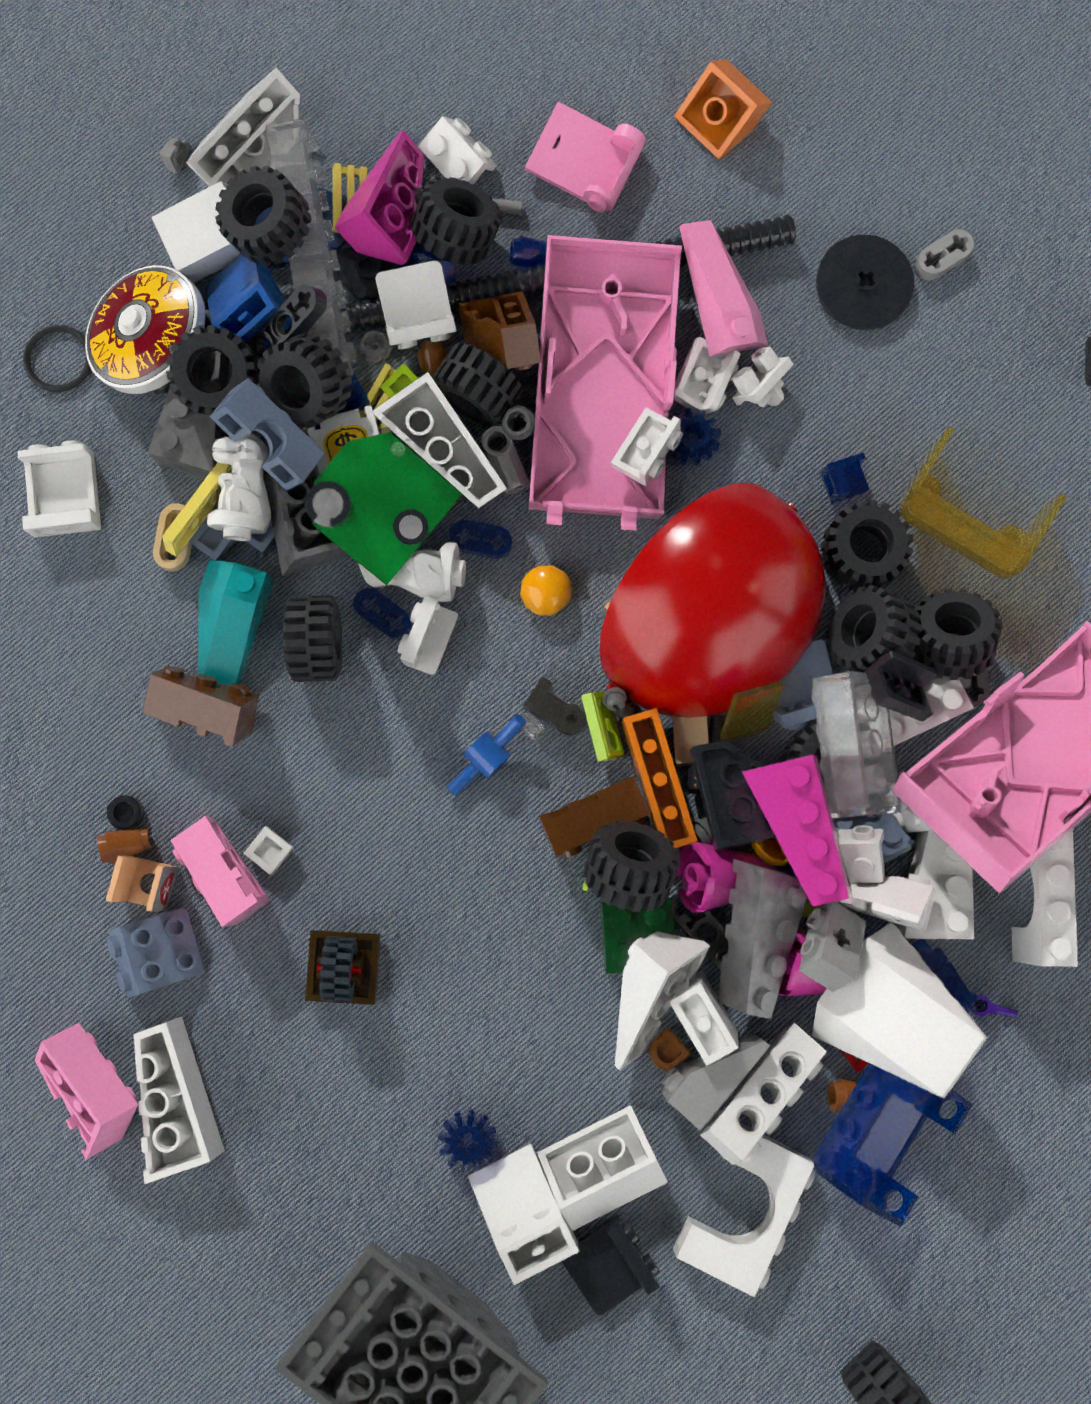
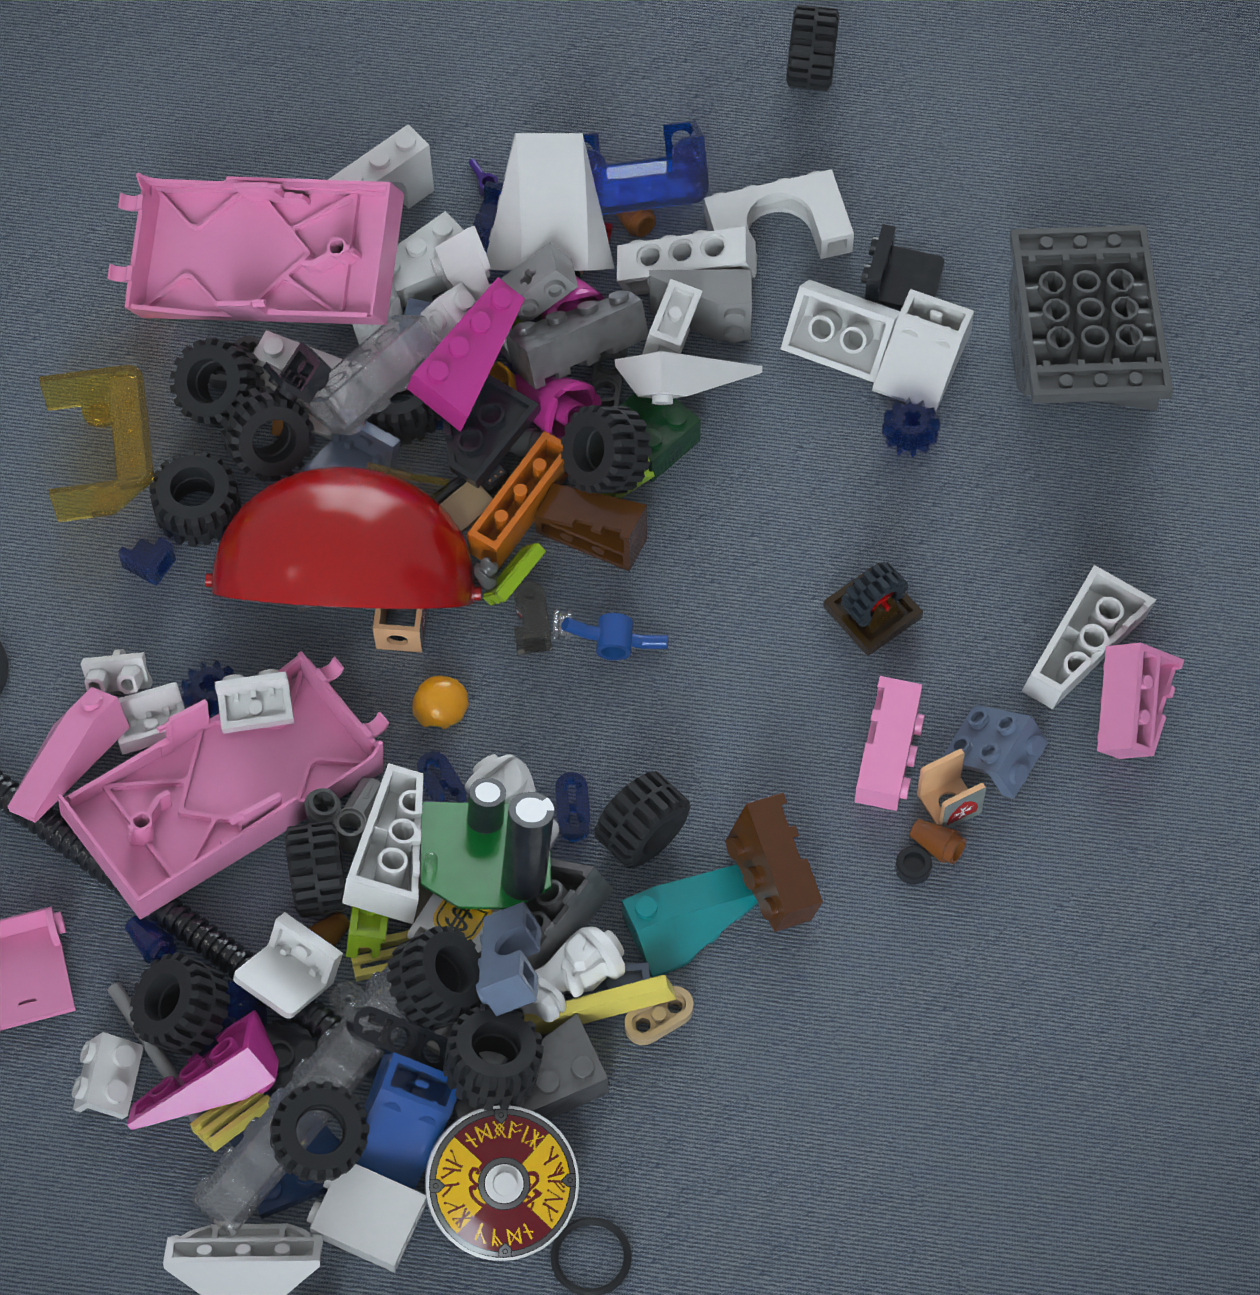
camera: 125 degrees left, 20 degrees down
(60, 489) = (705, 1142): white panel -> none
(268, 850) = (838, 732): white plate -> none
(428, 636) = (561, 753): white bracket -> none
(502, 329) = (247, 883): reddish brown wedge -> none
(667, 1050) = (718, 348): dark orange tile -> none

